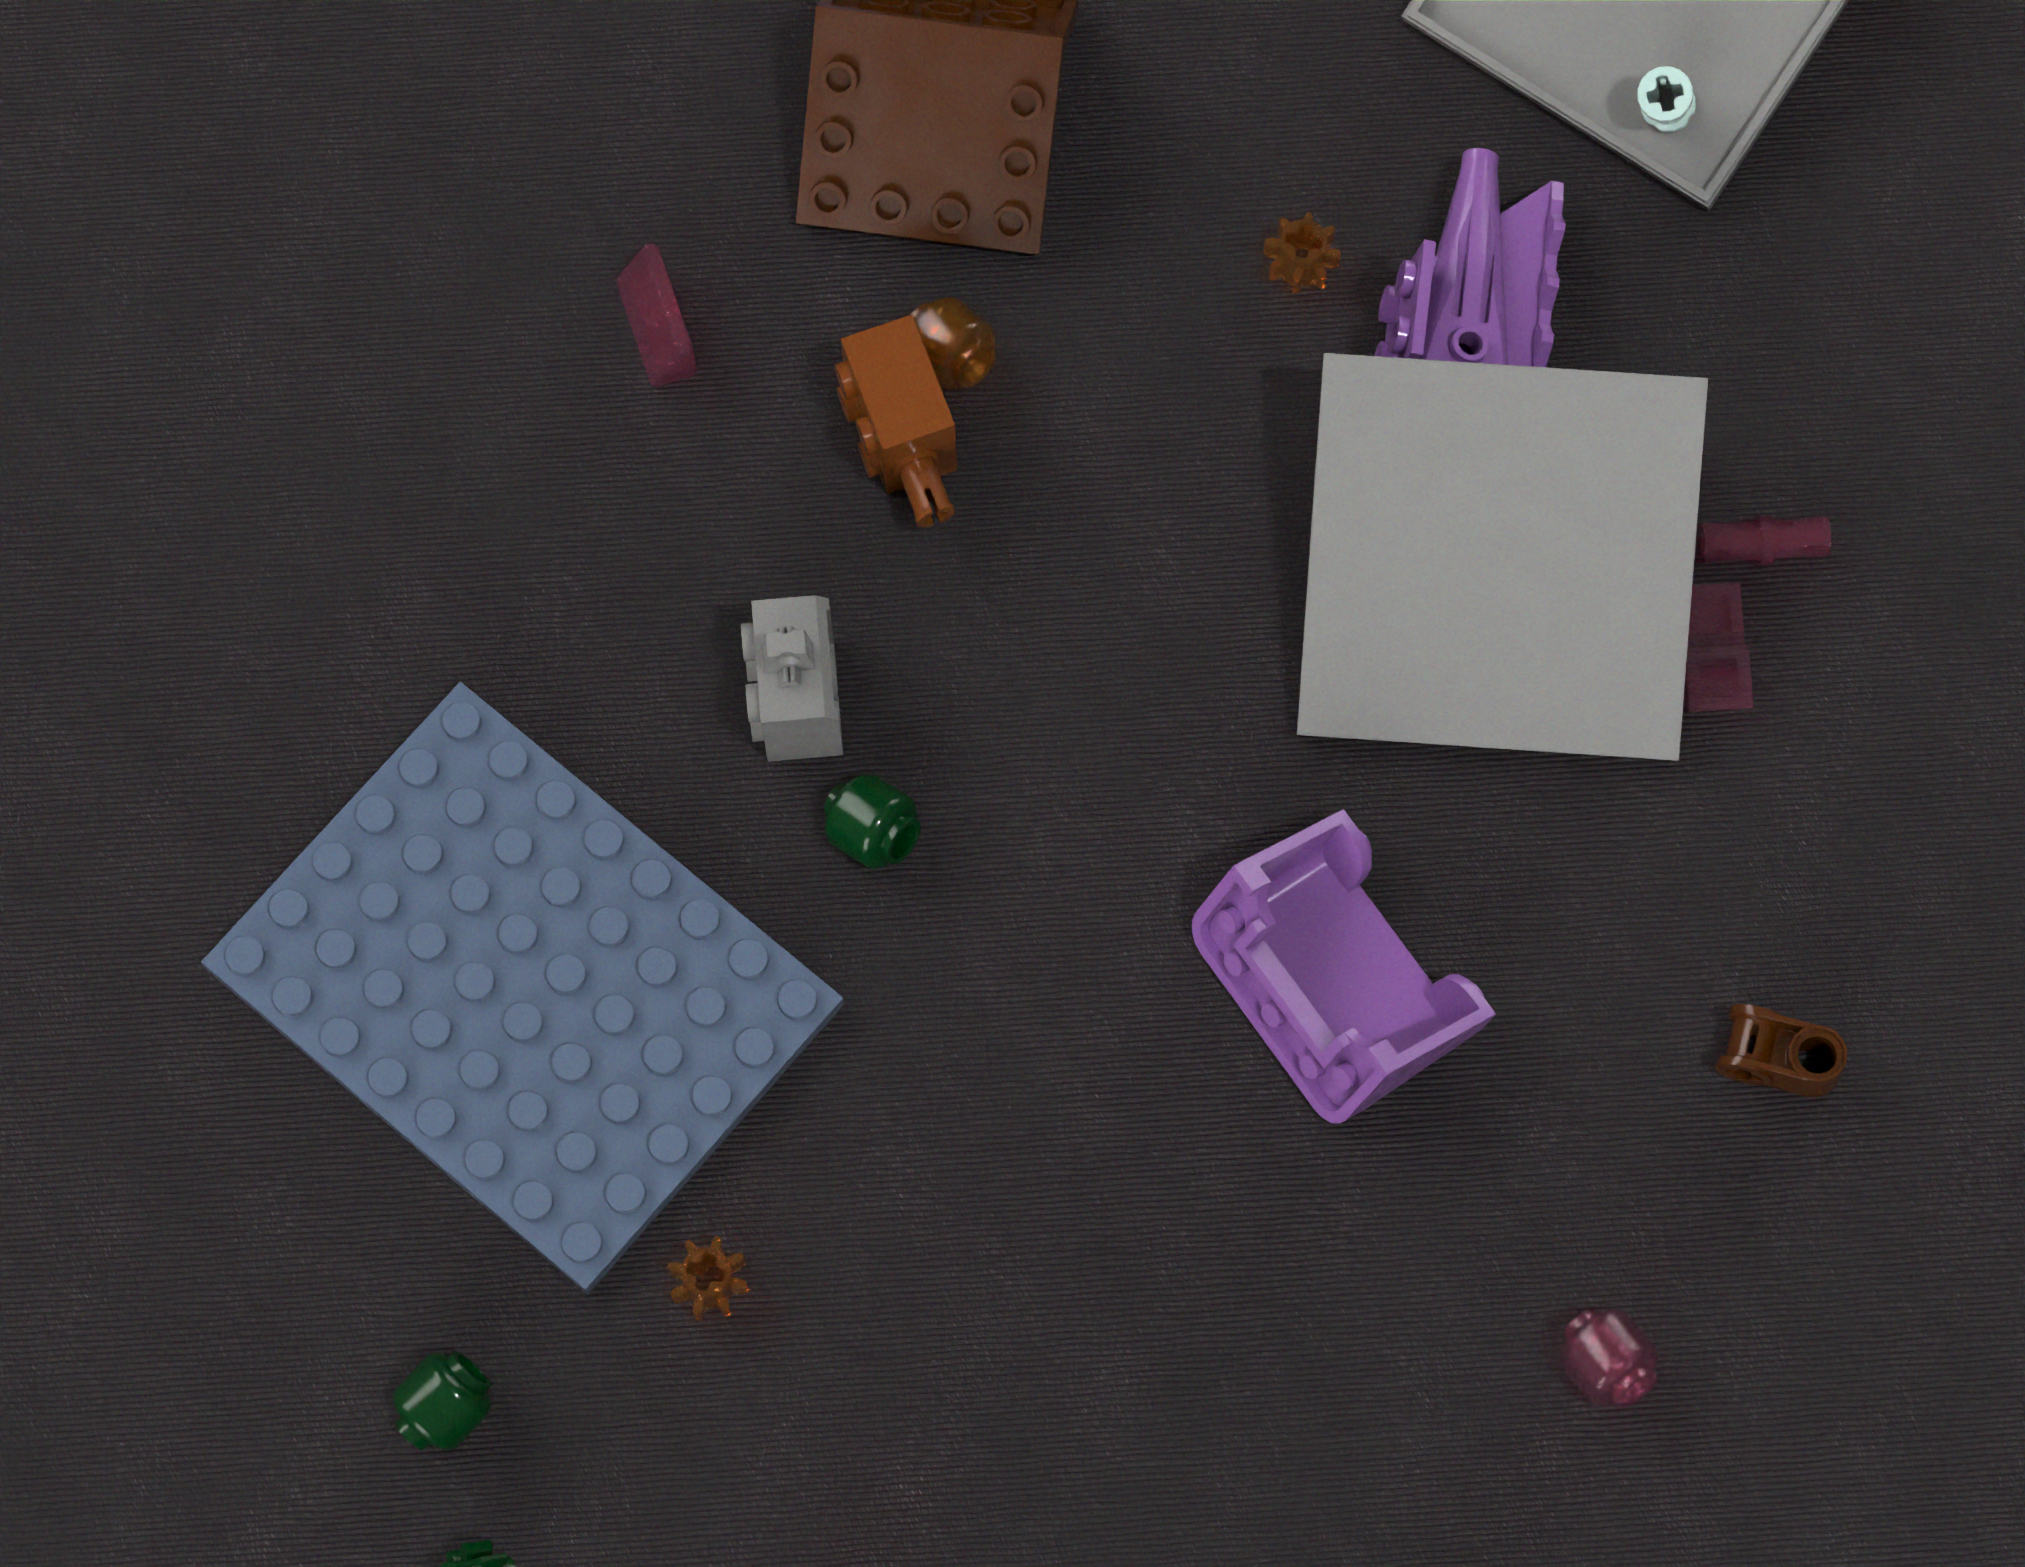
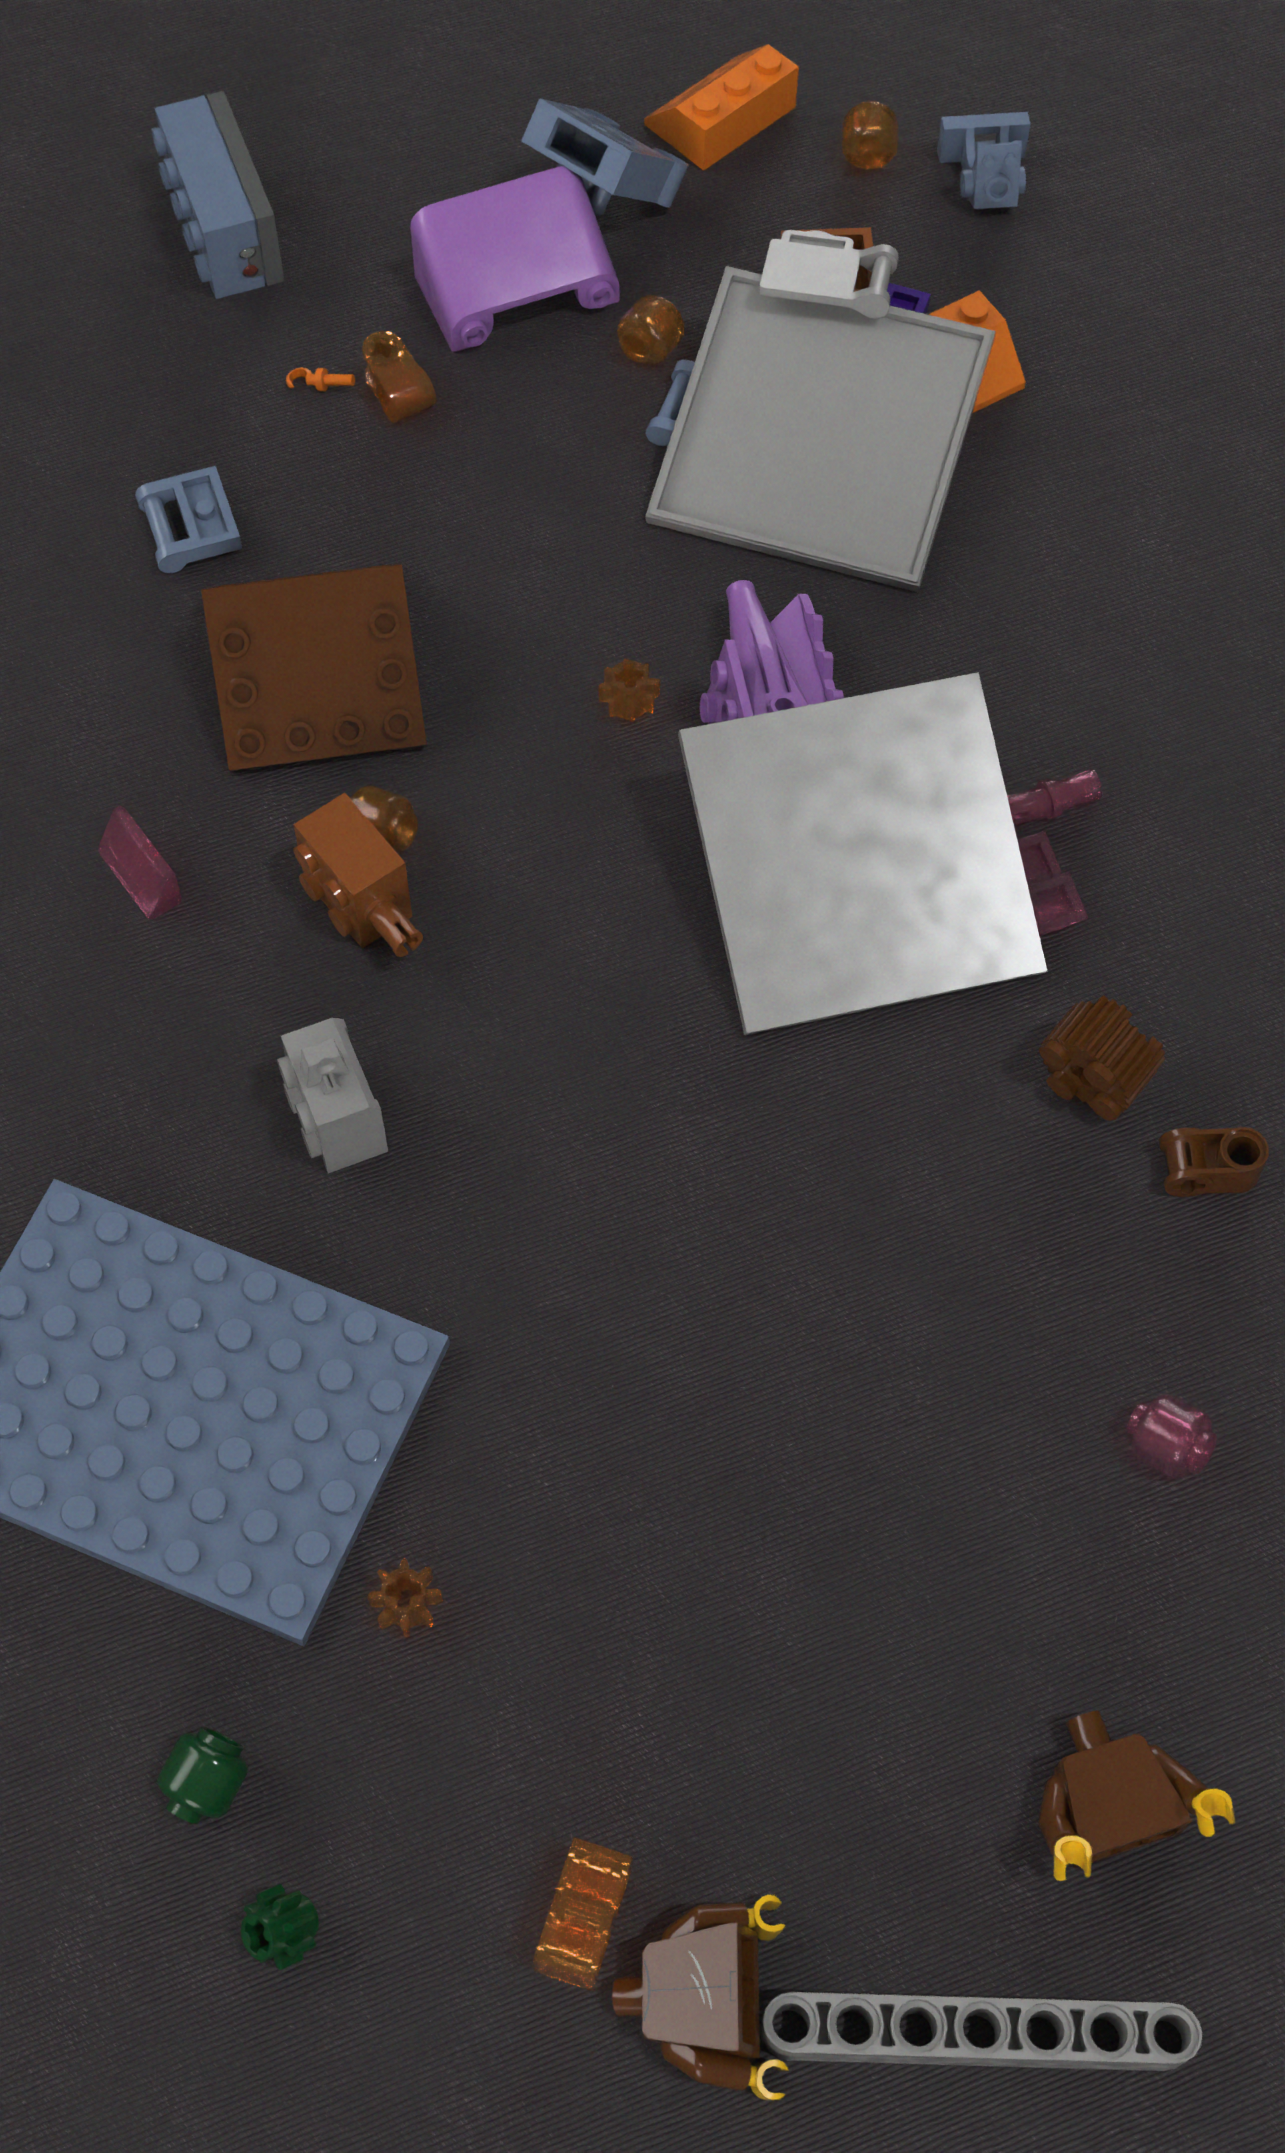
camera: 20 degrees left, 10 degrees down
(871, 821) = (429, 1190): dark green head -> none
(1329, 972) = (834, 1205): medium lavender windscreen -> none
(1649, 94) = (871, 503): light aqua bush -> none
(1692, 891) = (1100, 1057): none -> reddish brown brick

